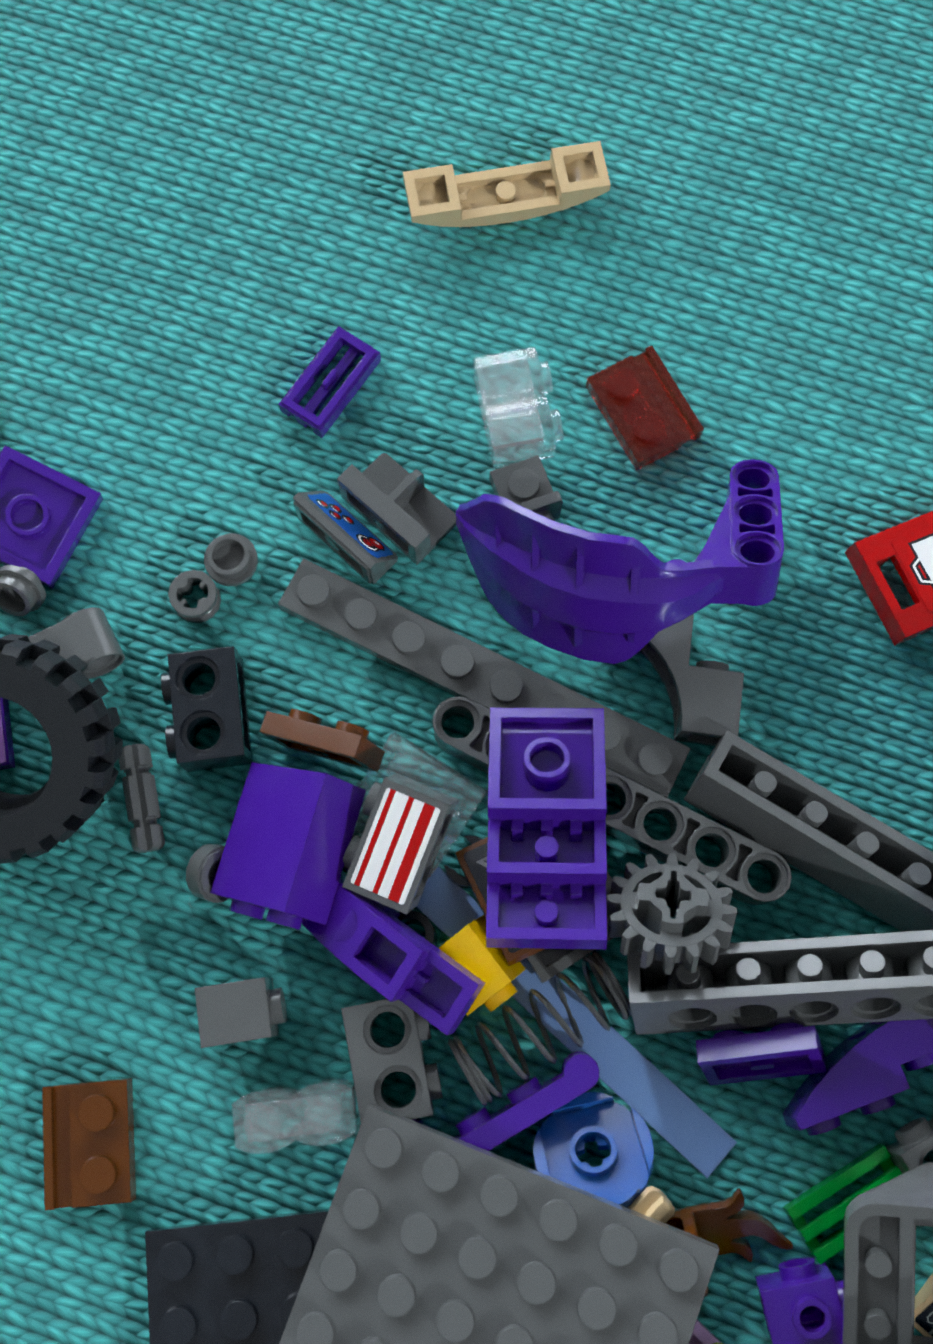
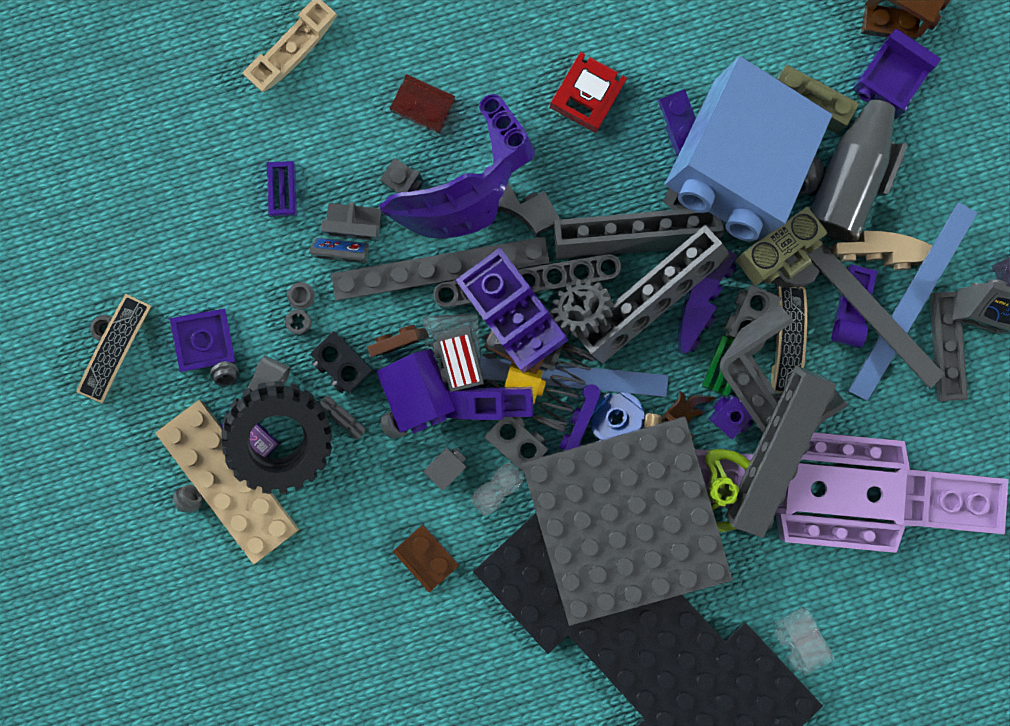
camera: 40 degrees left, 10 degrees up
(515, 406) = (369, 143): clear brick -> none
(777, 1053) = (654, 336): dark purple plate -> none

